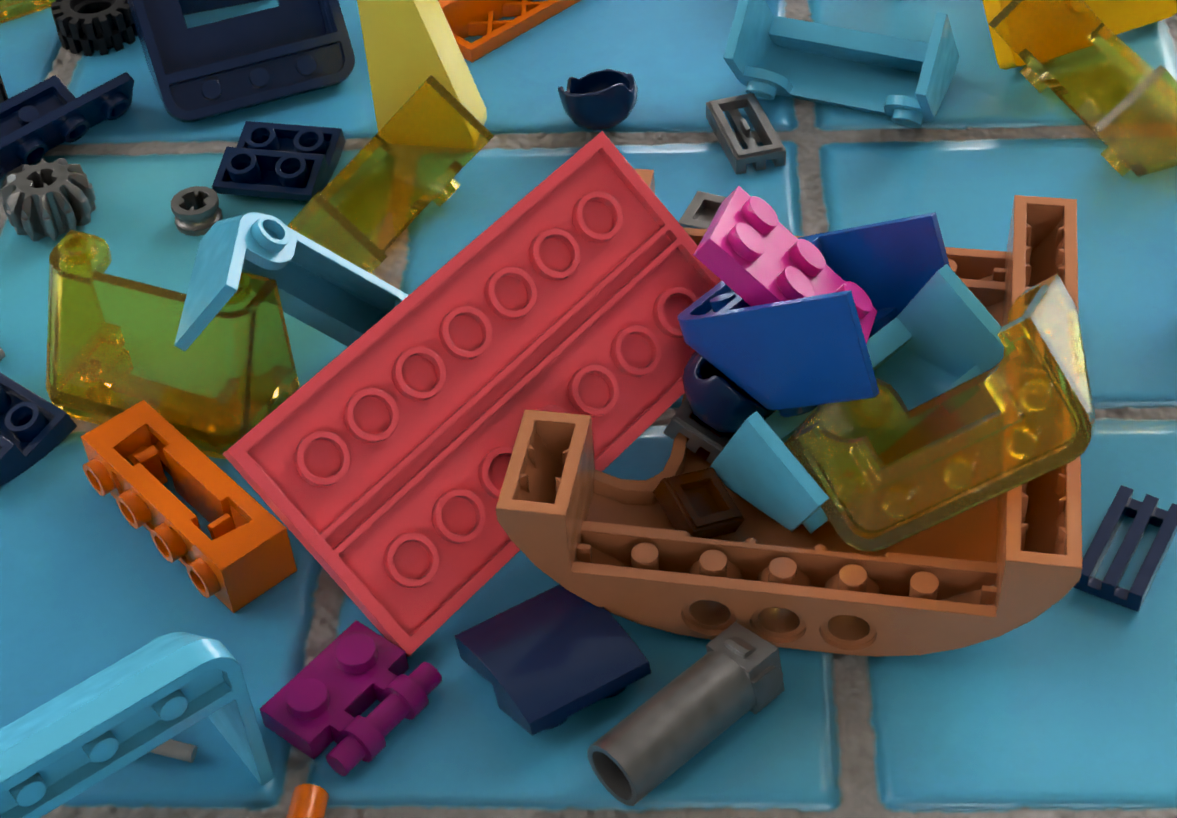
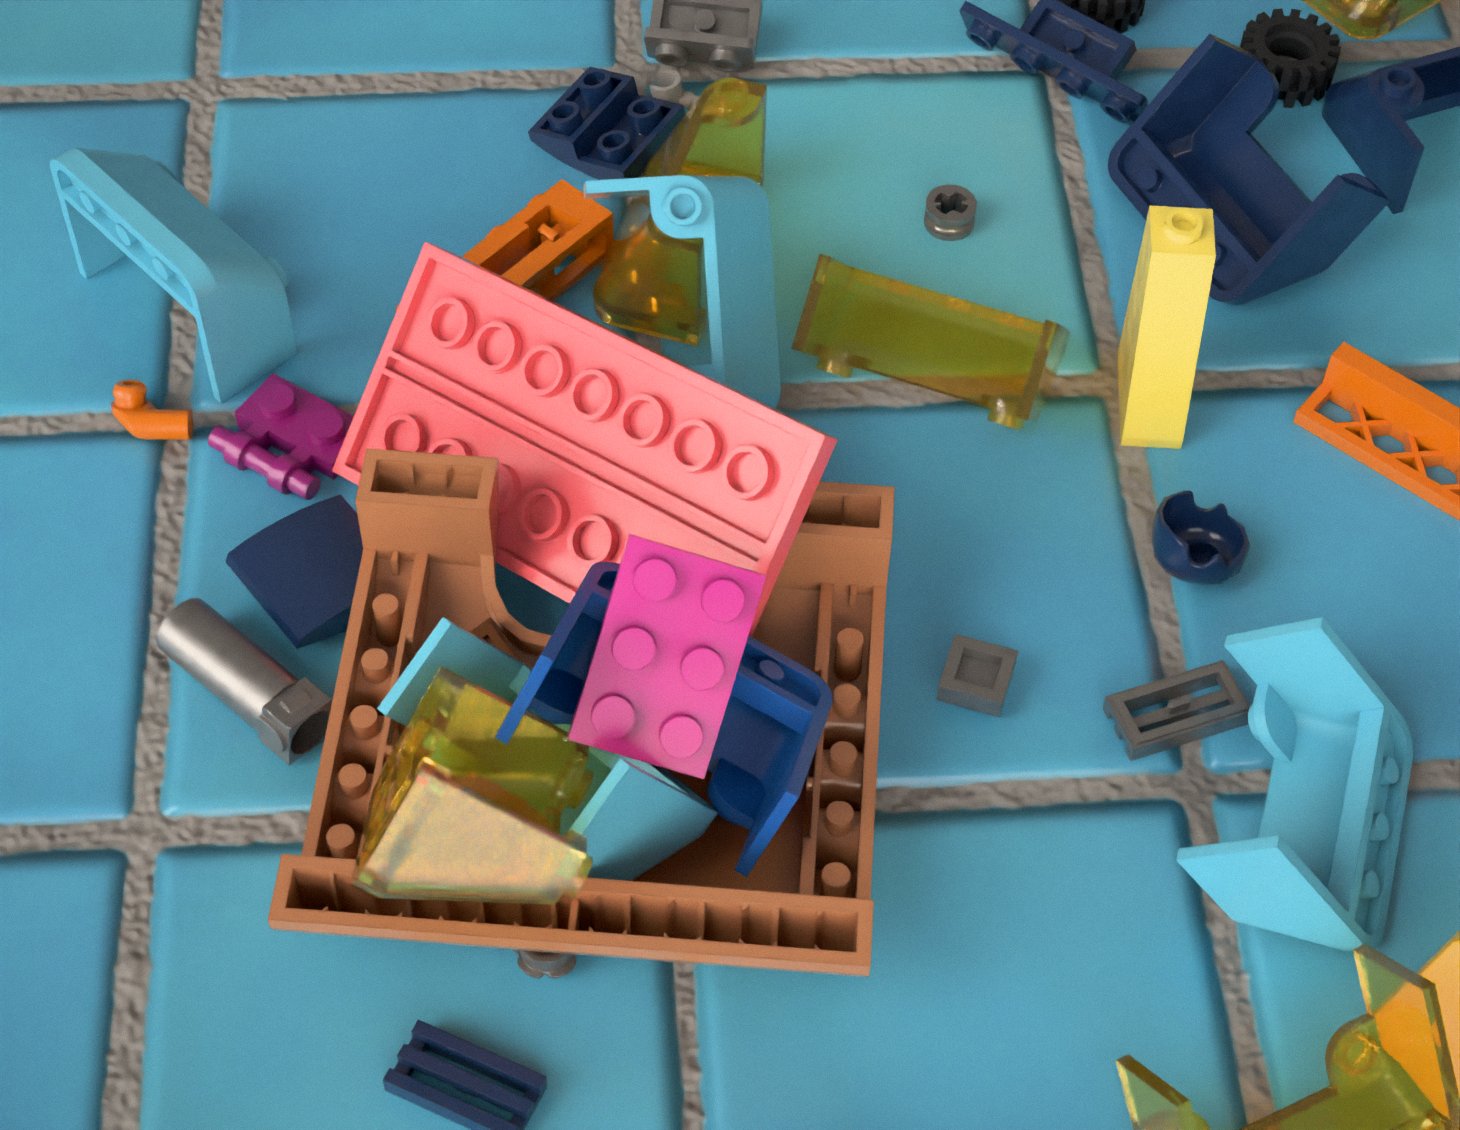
camera: 80 degrees right, 10 degrees up
(48, 199) = (939, 89): flat silver gear -> none
(280, 161) = (1042, 268): dark blue slope -> none

